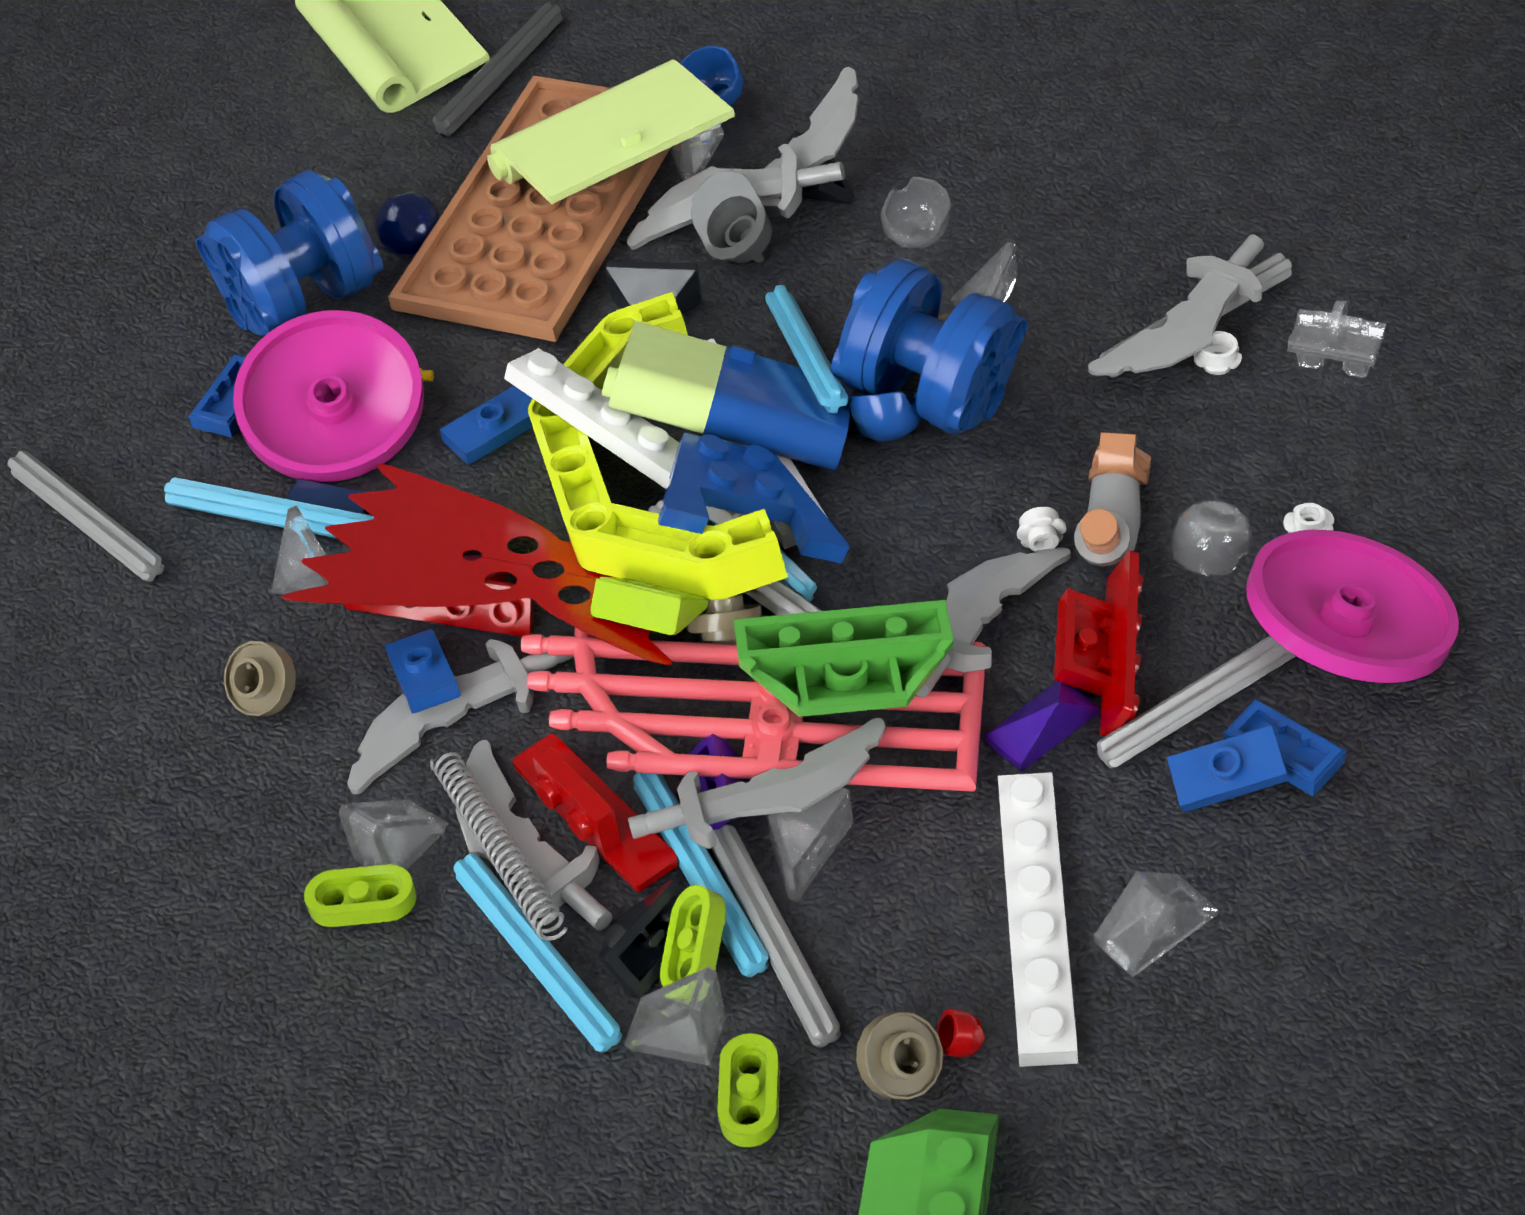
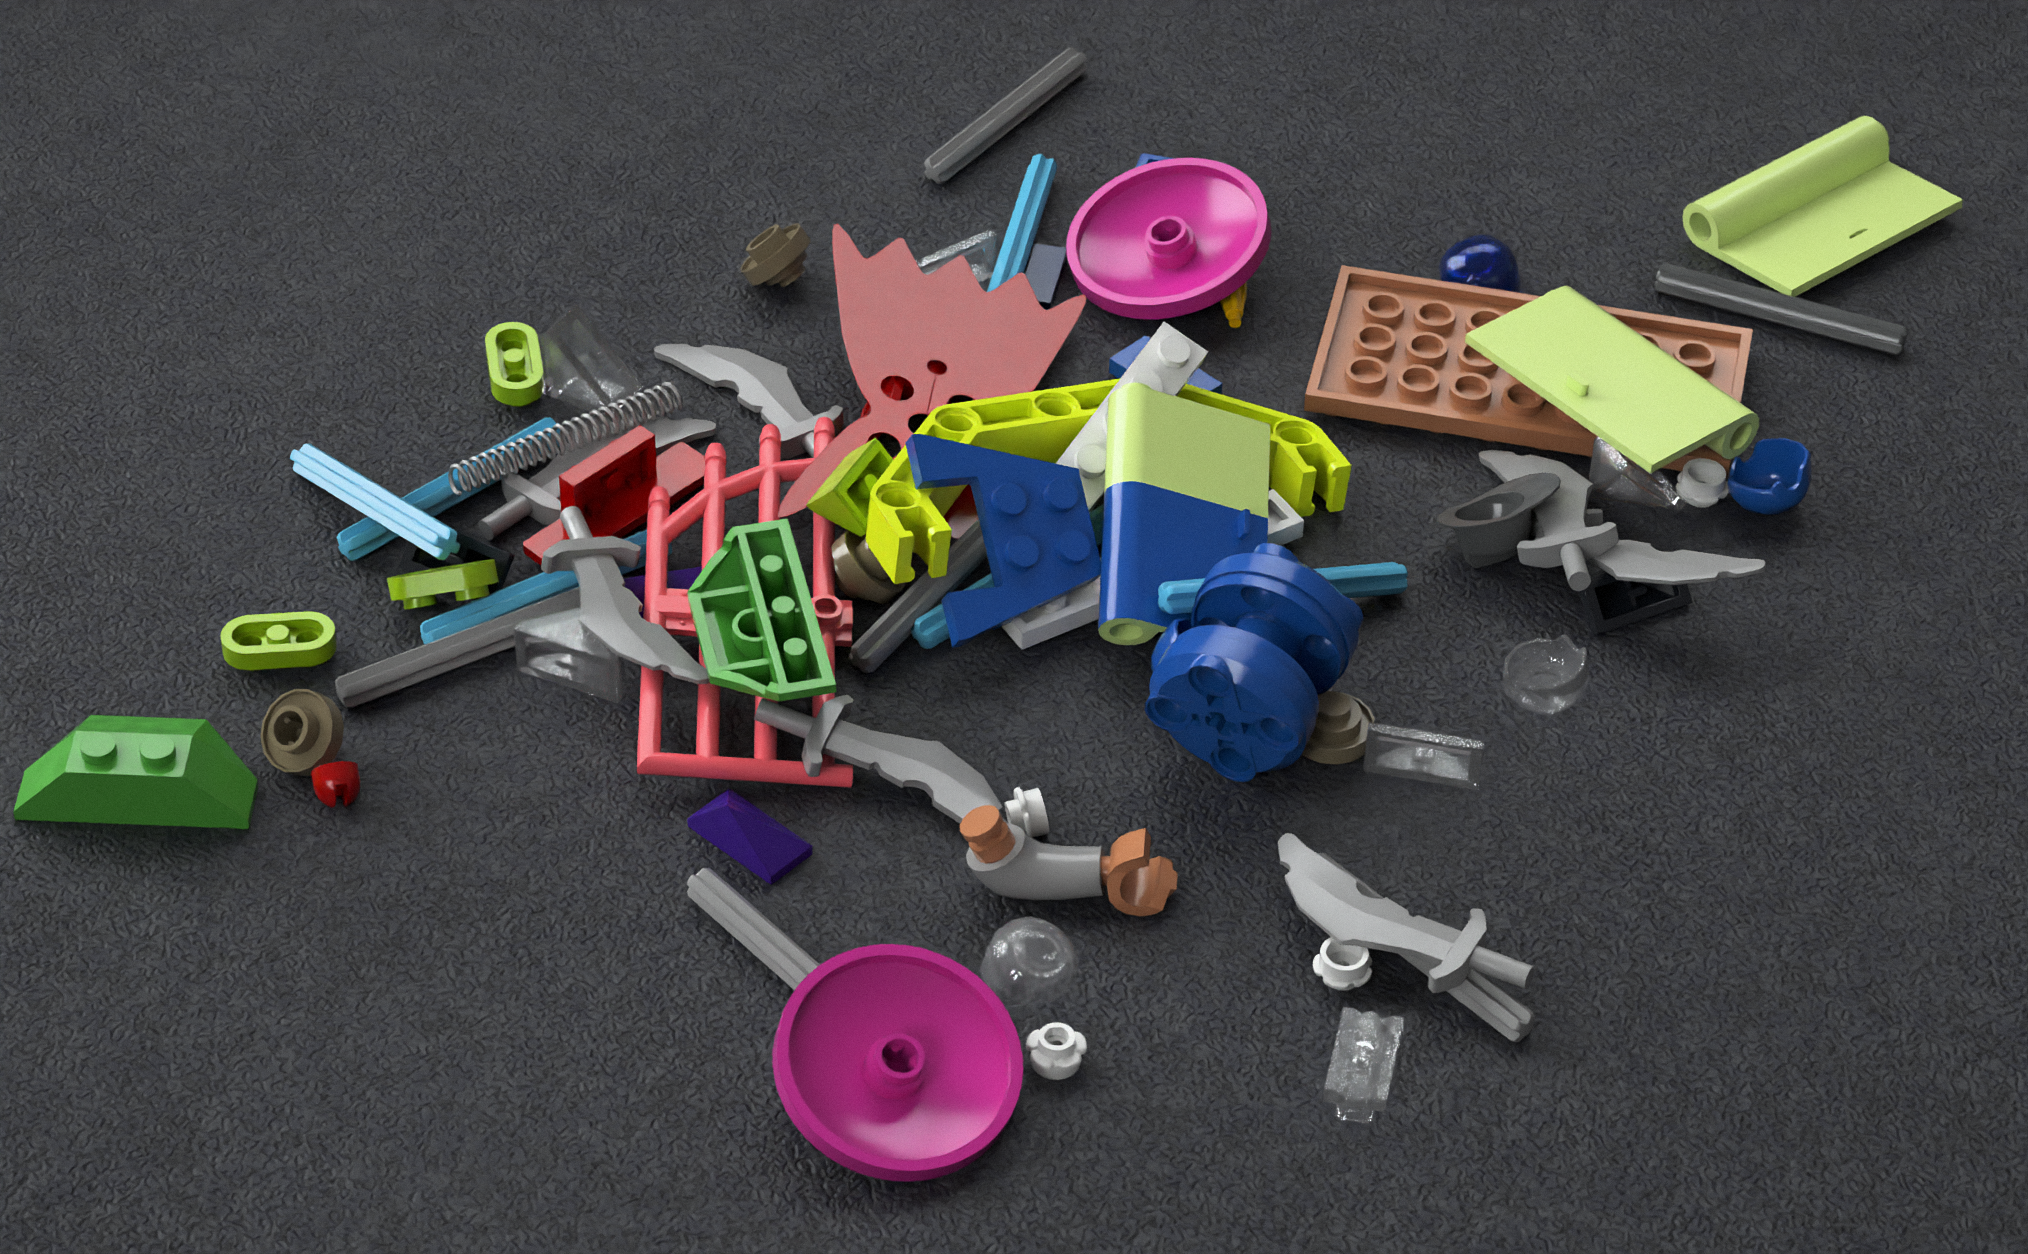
camera: 75 degrees right, 5 degrees down
(317, 239) = (1371, 169): blue piece -> none
(422, 671) = (796, 365): blue plate -> none
(569, 998) = (375, 501): none -> axle
(642, 281) = (1380, 472): slope -> none
(680, 1019) = (354, 591): clear slope -> none
(1037, 921) = (487, 838): white plate -> none
(1099, 643) = (850, 858): red bracket -> none
(1151, 919) = (481, 927): clear slope -> none
(1228, 768) = (665, 968): blue plate -> none
(1307, 755) = (705, 1023): blue plate -> none

